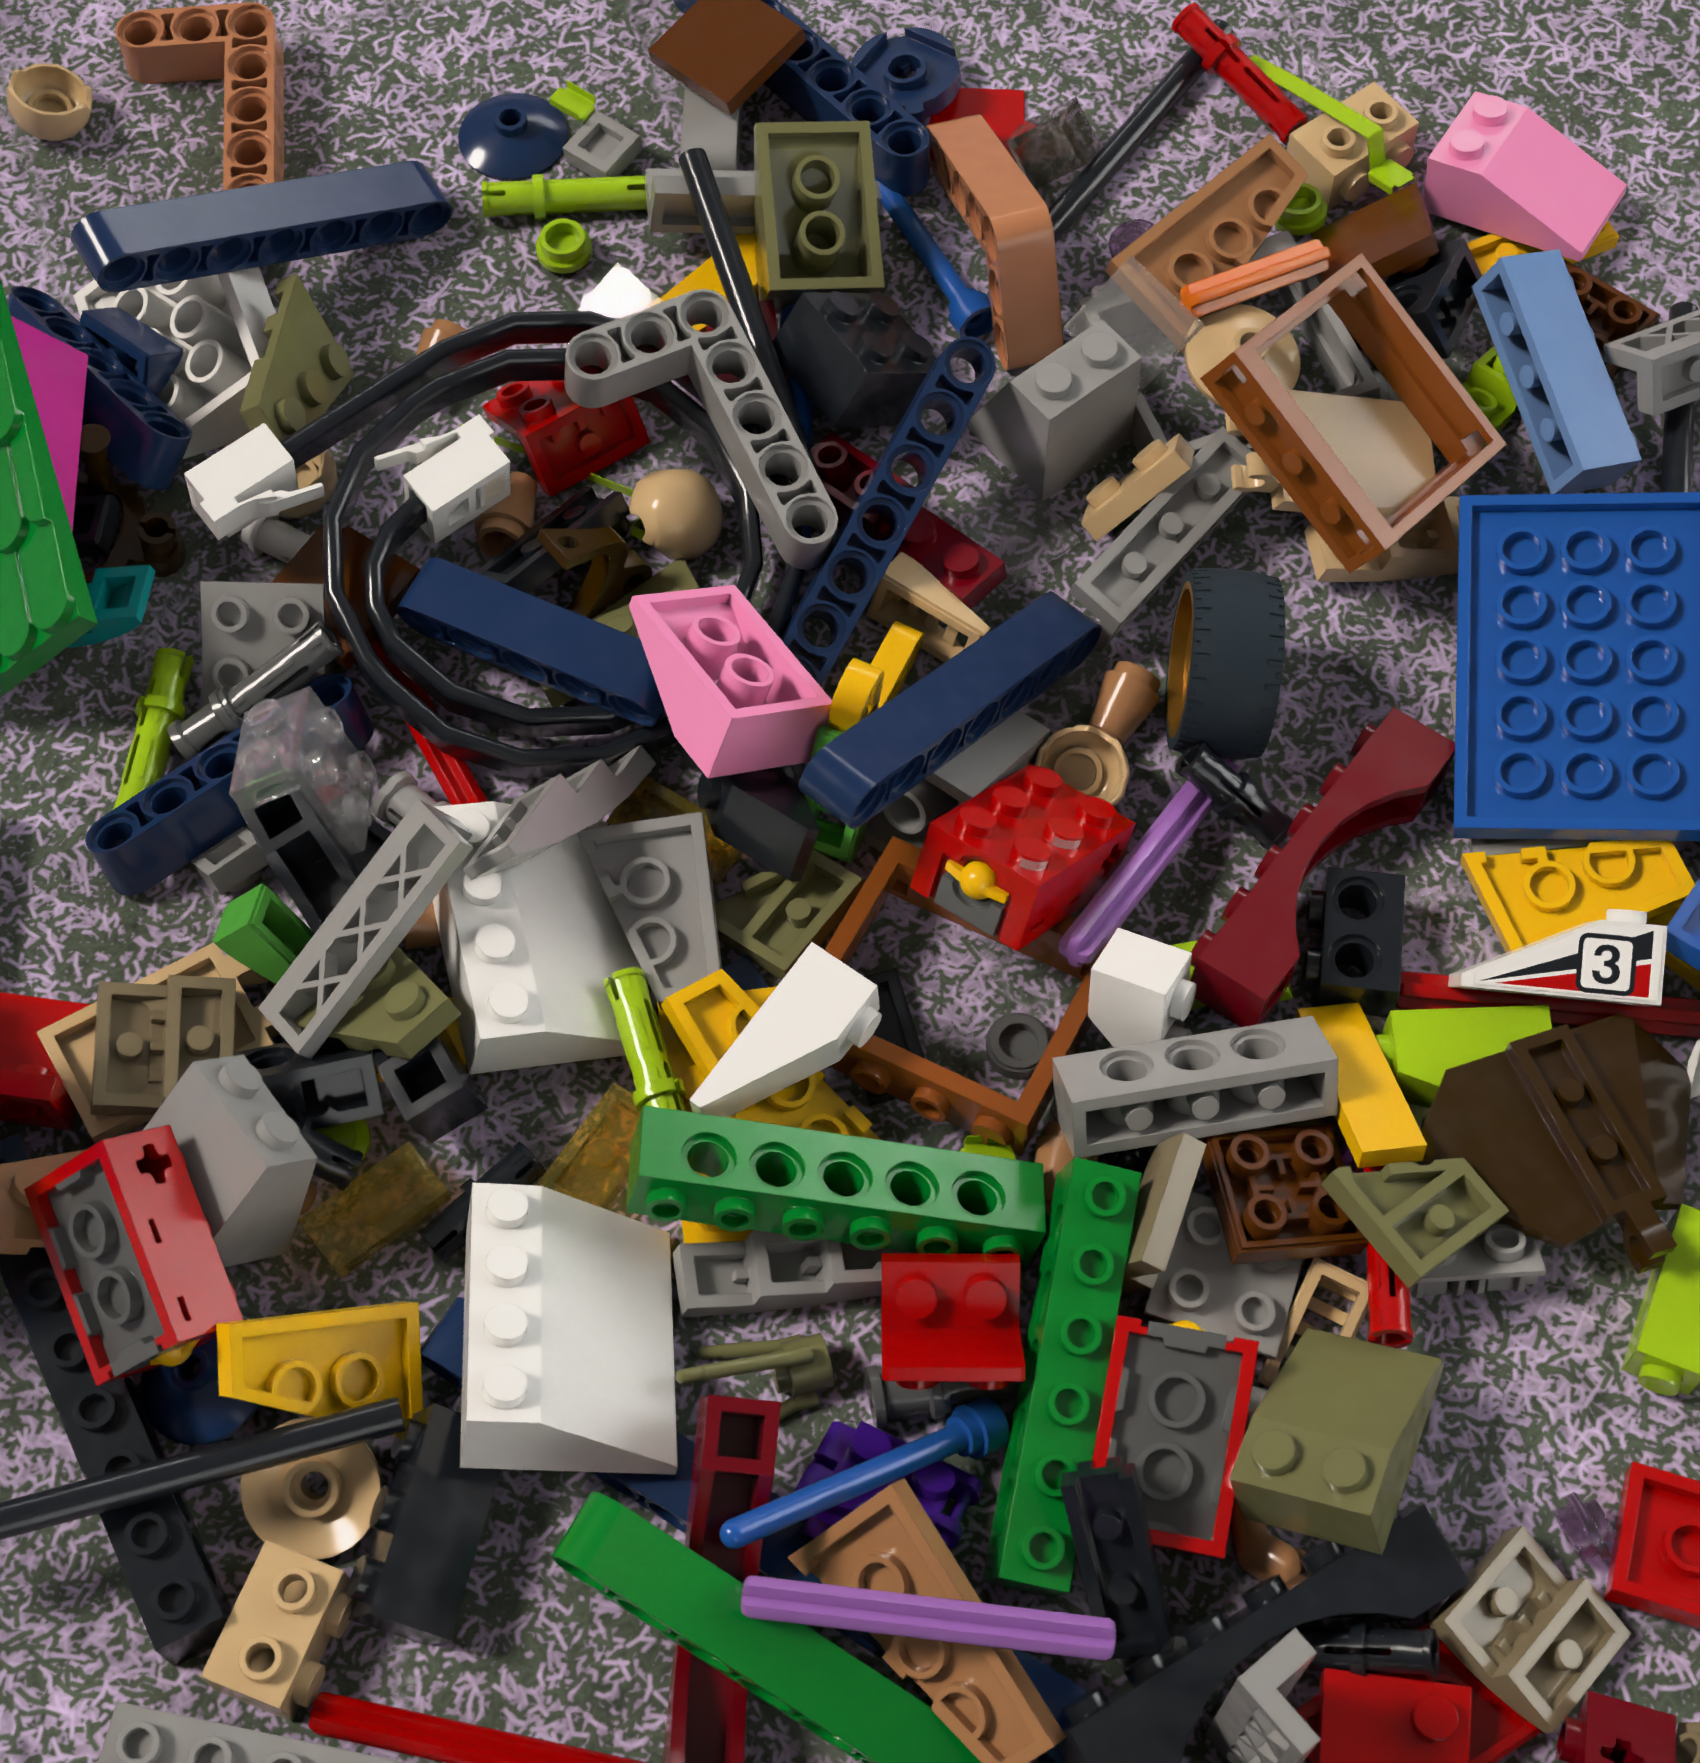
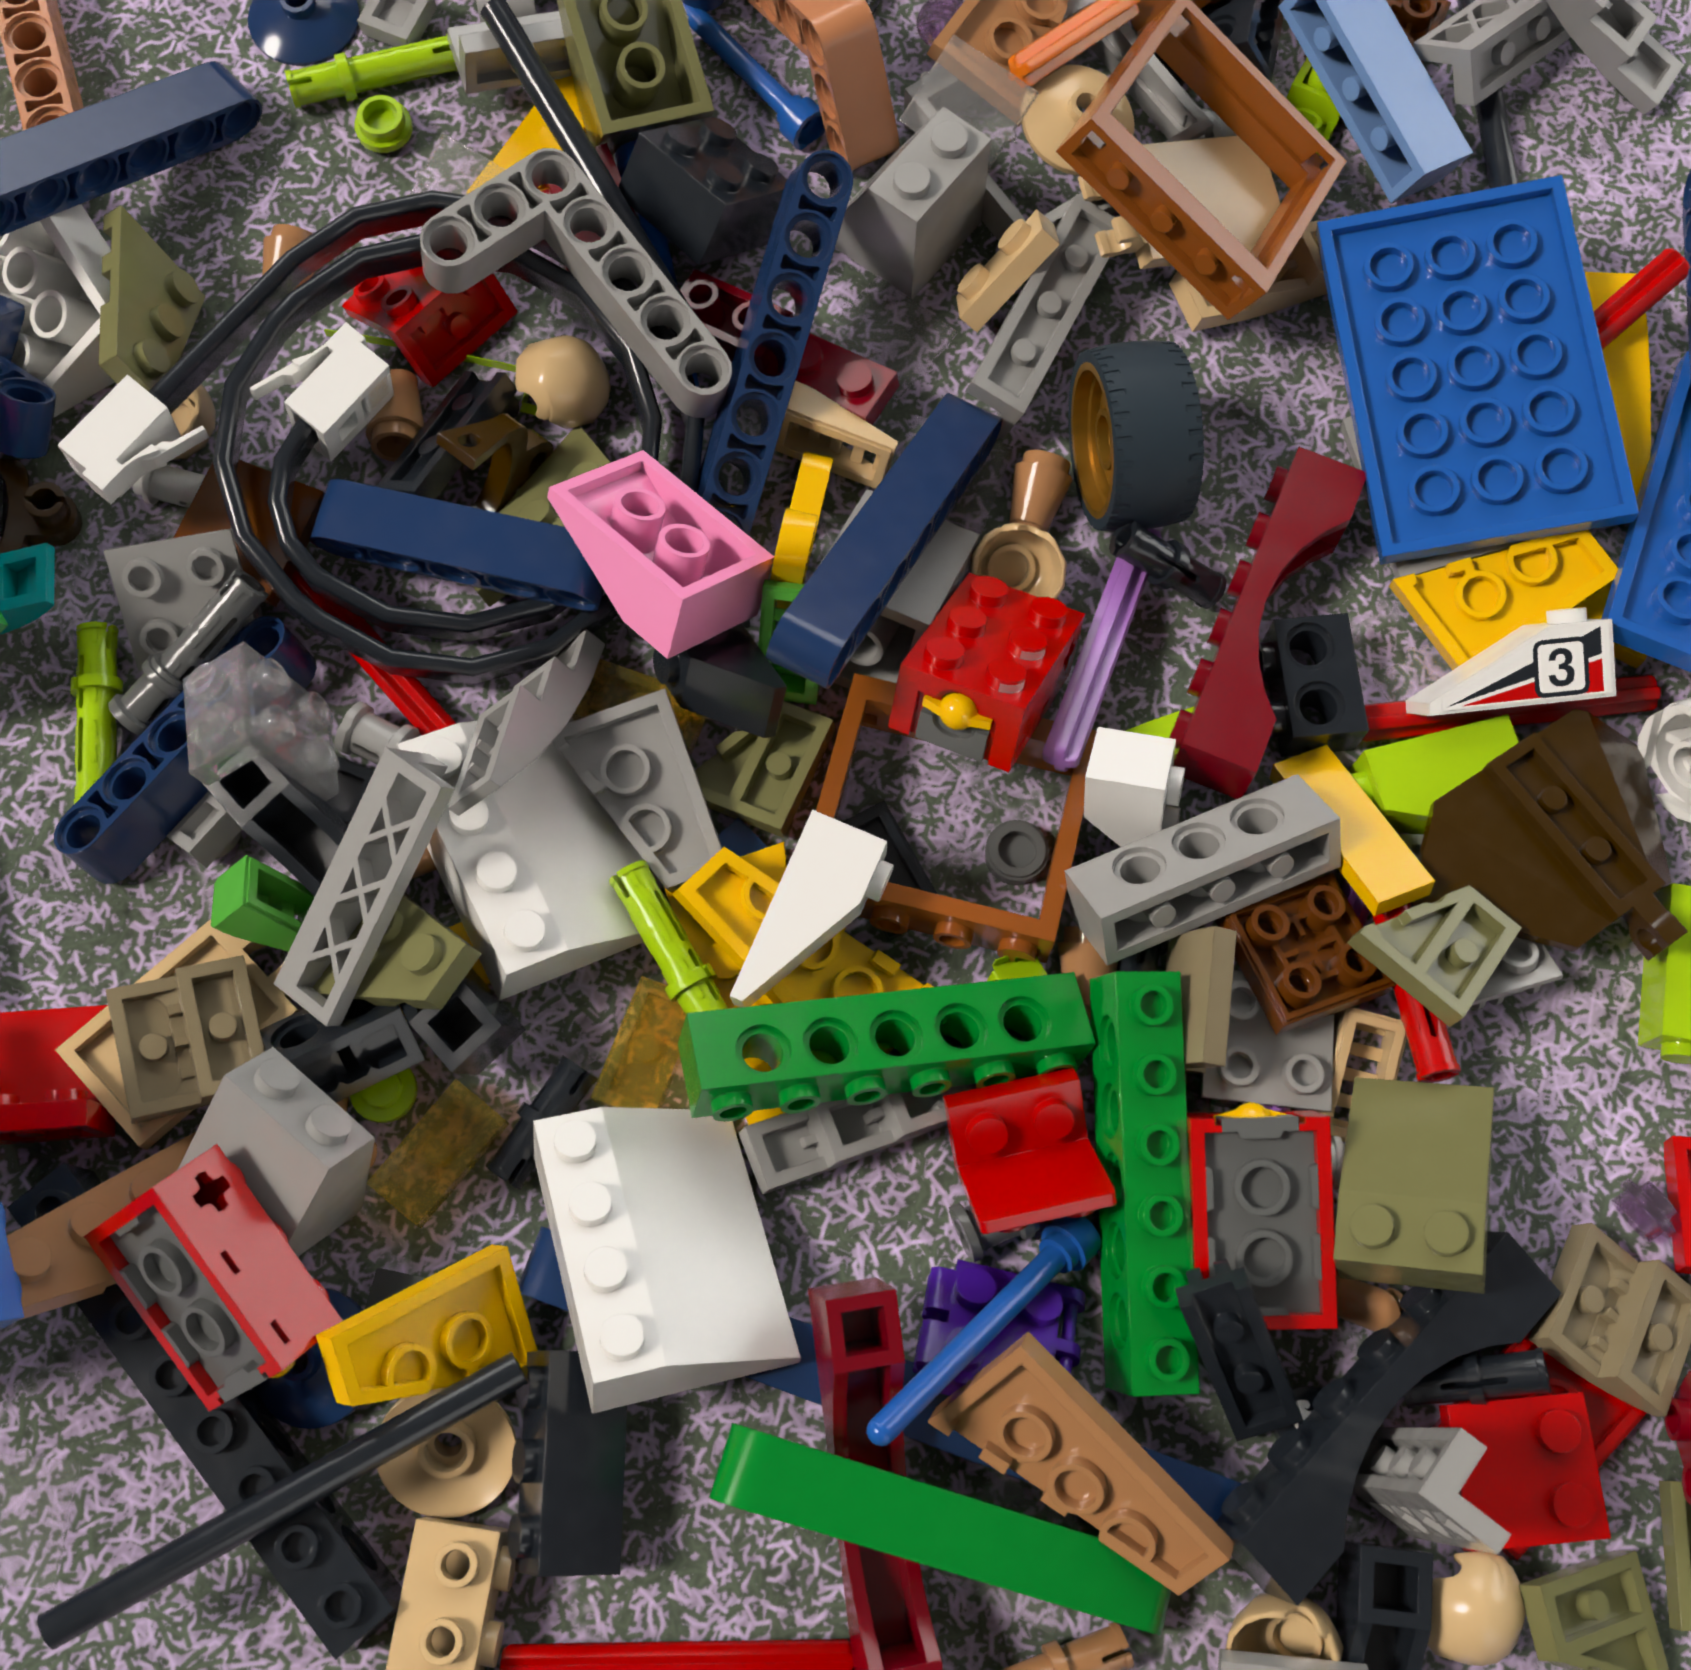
camera: 15 degrees left, 10 degrees up
(334, 1158) = (372, 1114): black pin -> none
(794, 1362) = (885, 1219): olive plant -> none
(928, 1617) = (1087, 1471): medium lavender axle -> none

